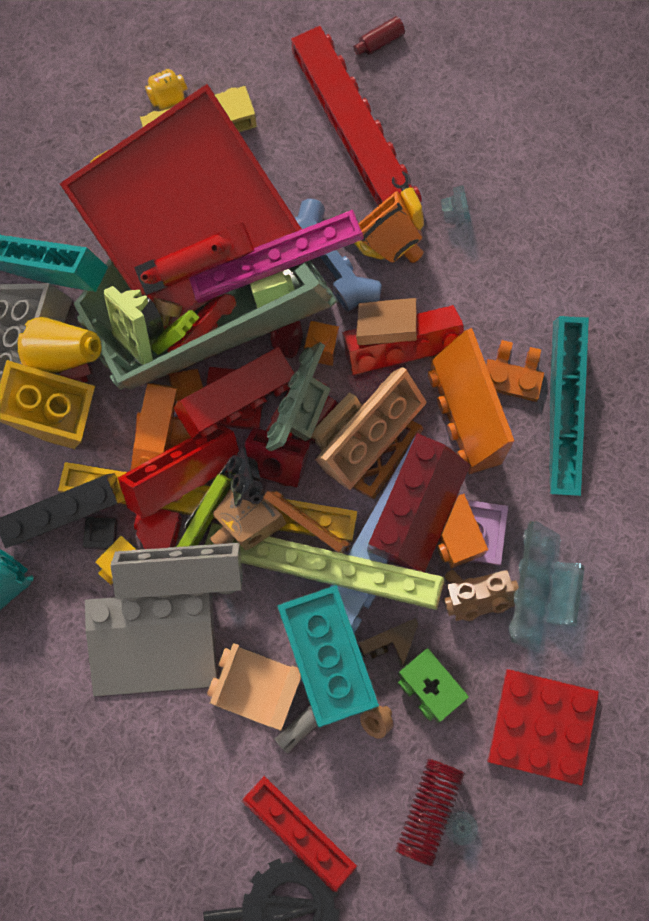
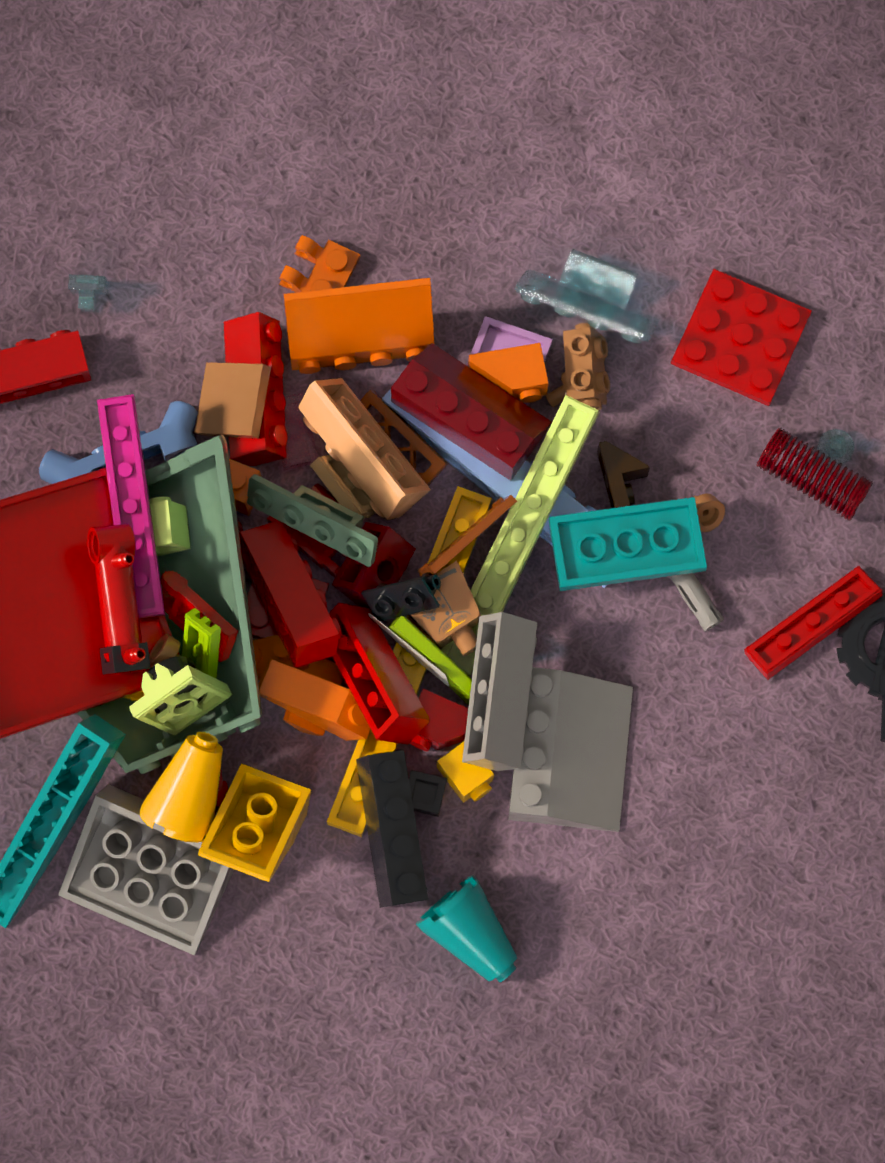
camera: 85 degrees left, 0 degrees up
(254, 687) = (644, 638): light nougat panel -> none
(394, 226) = (103, 367): orange torso -> none
(448, 691) = (685, 428): bright green brick -> none
(567, 403) = (373, 221): teal slope -> none

